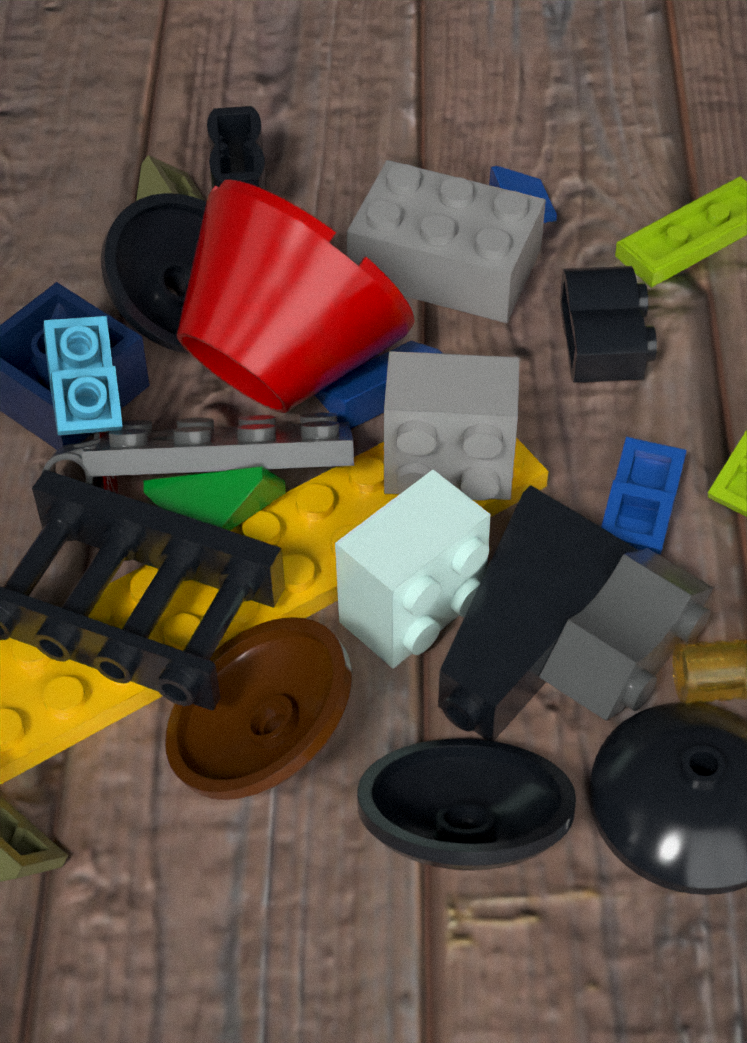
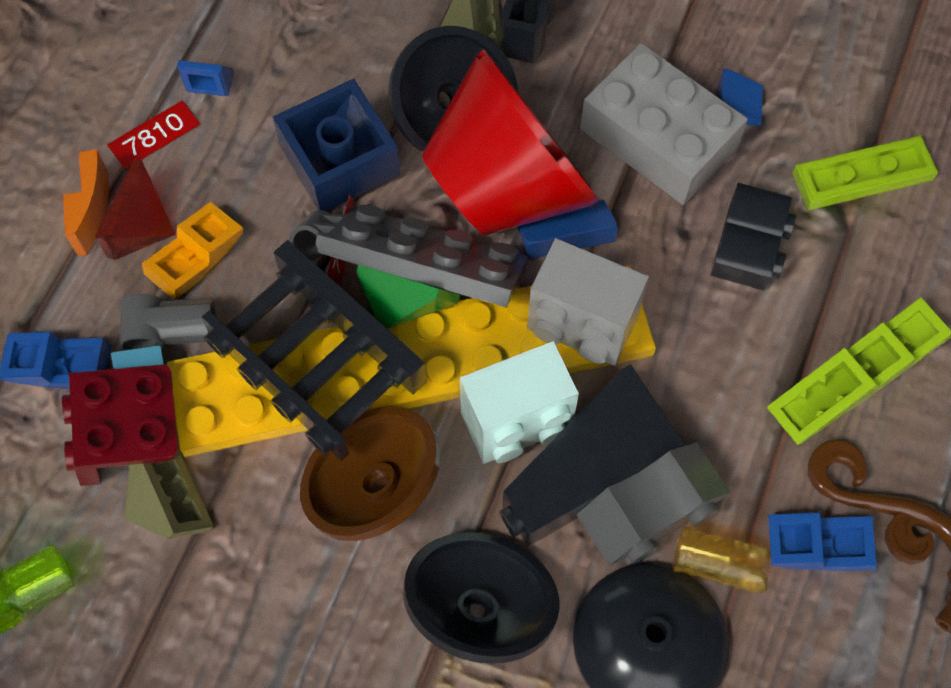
camera: 20 degrees right, 15 degrees up
(82, 375) = (339, 171): medium azure slope -> none
(644, 493) = (717, 392): blue slope -> none

